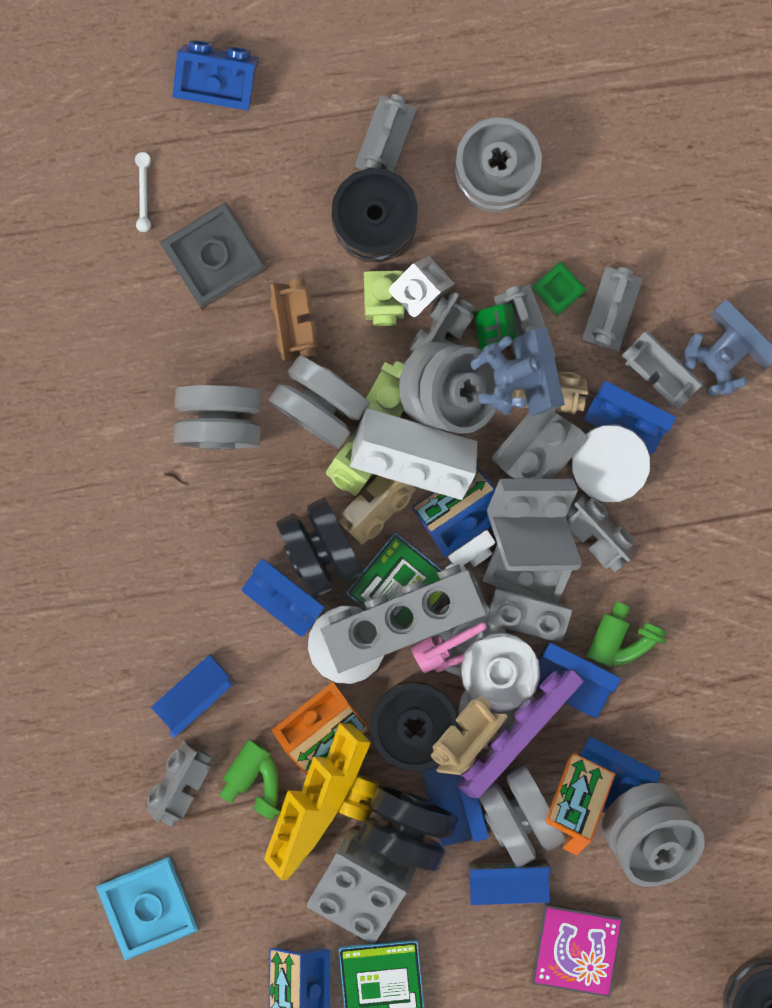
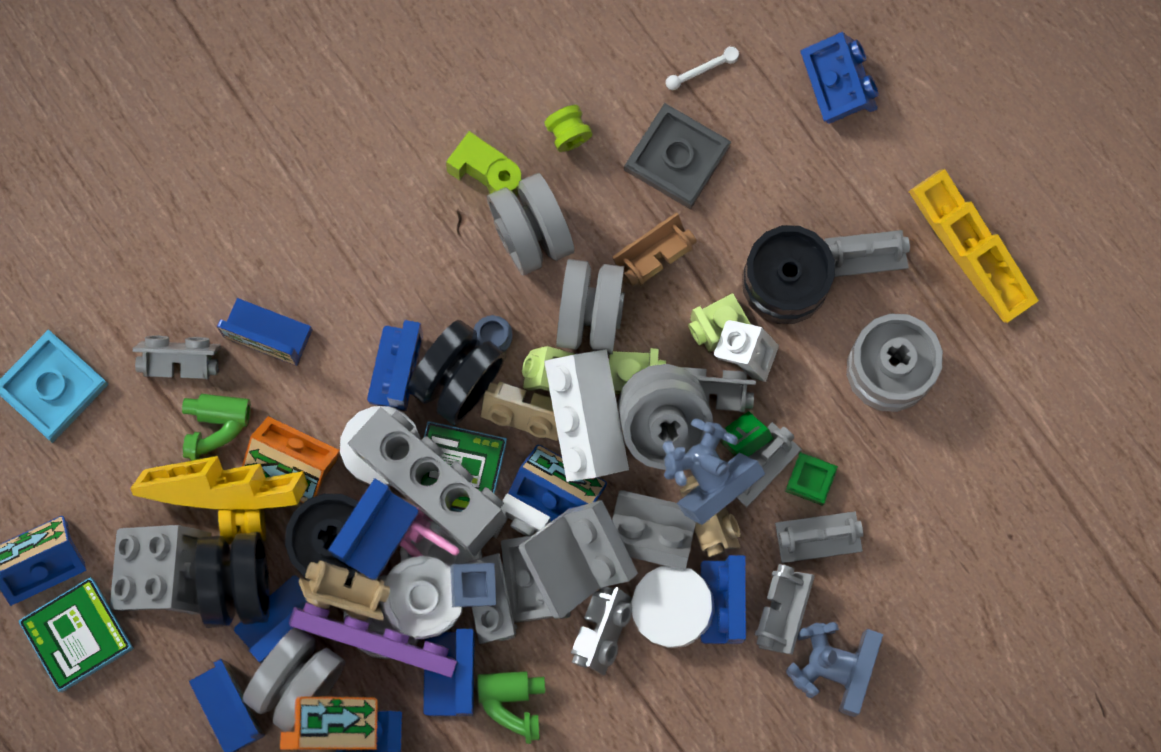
camera: 60 degrees right, 10 degrees down
(140, 427) = (483, 164): none -> lime leg
(141, 339) = (568, 128): none -> lime wheel
(295, 497) = (494, 329): none -> sand blue plate
(425, 41) = (973, 246): none -> yellow slope
(431, 686) = (374, 530): none -> blue panel
(516, 624) = (473, 585): none -> sand blue plate

